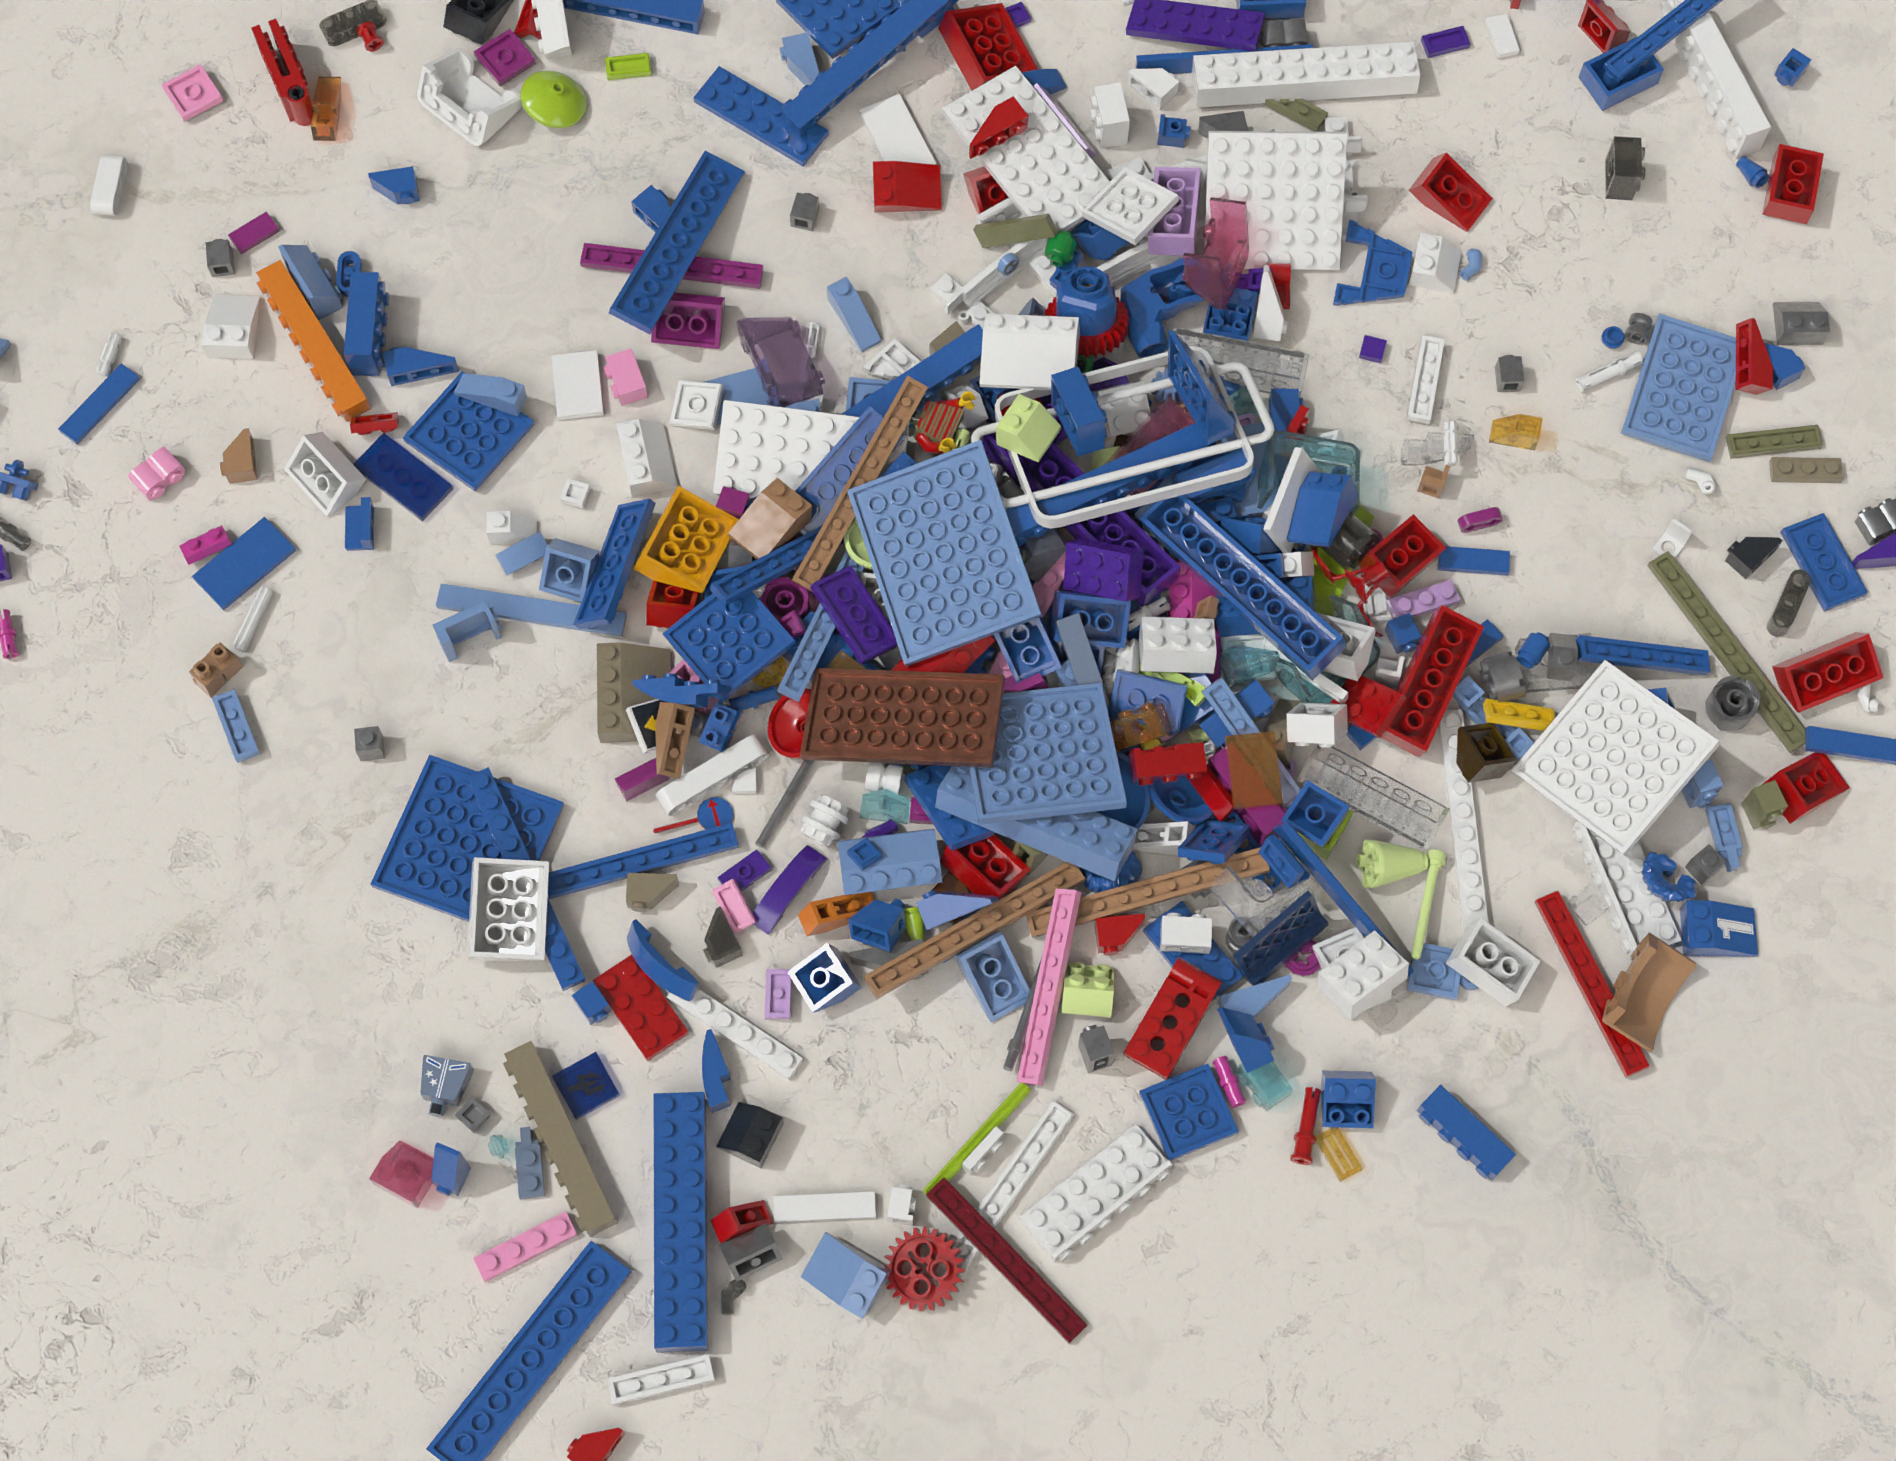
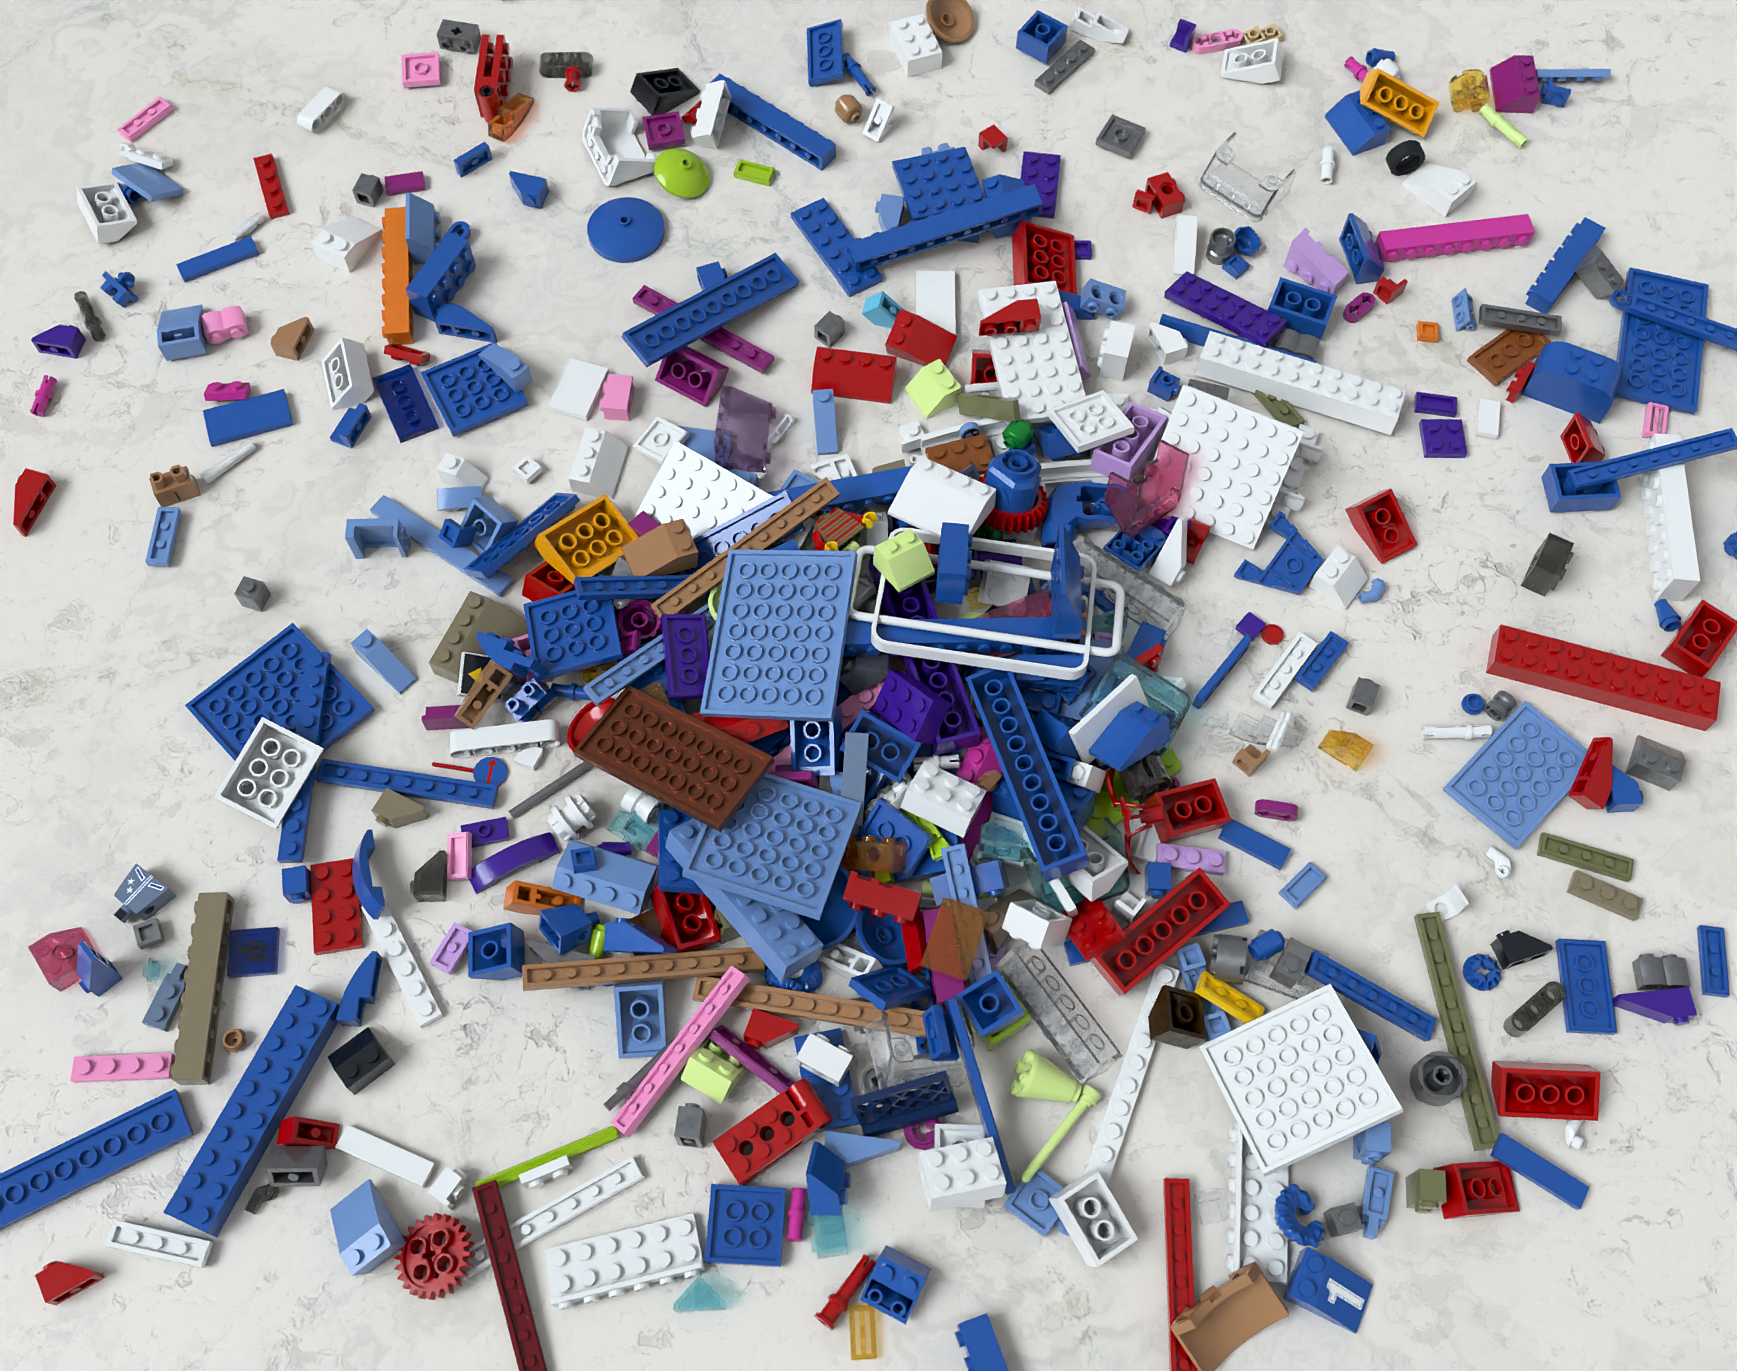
camera: 25 degrees right, 5 degrees down
(65, 739) = (31, 495): none -> red slope
(105, 296) = (271, 186): none -> red plate
(115, 500) = (181, 333): none -> medium blue slope
(212, 36) = (459, 36): none -> flat silver brick
(315, 175) = (473, 159): none -> blue plate
(526, 188) = (626, 230): none -> blue dish
(544, 753) = (382, 661): none -> medium blue slope
(545, 592) = (456, 535): none -> blue panel
(618, 1166) = (232, 1034): none -> medium nougat plate
(850, 168) = (881, 310): none -> medium azure slope
(856, 251) = (854, 374): none -> red slope
(945, 232) = (933, 389): none -> yellowish green slope
(1013, 292) = (962, 453): none -> dark orange plate
(1068, 64) = (1102, 299): none -> medium blue brick
(1117, 965) = (751, 1059): none -> magenta tile
(1182, 1191) = (699, 1297): none -> clear light blue slope
(1368, 405) = (1222, 672): none -> blue tile
(1396, 348) = (1272, 634): none -> red piece
(1455, 355) = (1321, 661): none -> blue plate
(1468, 75) = (1443, 438): none -> dark purple plate
(1535, 580) = (1302, 885): none -> medium blue tile
(1719, 260) = (1604, 677): none -> red brick
(1728, 599) = (1476, 979): none -> blue gear

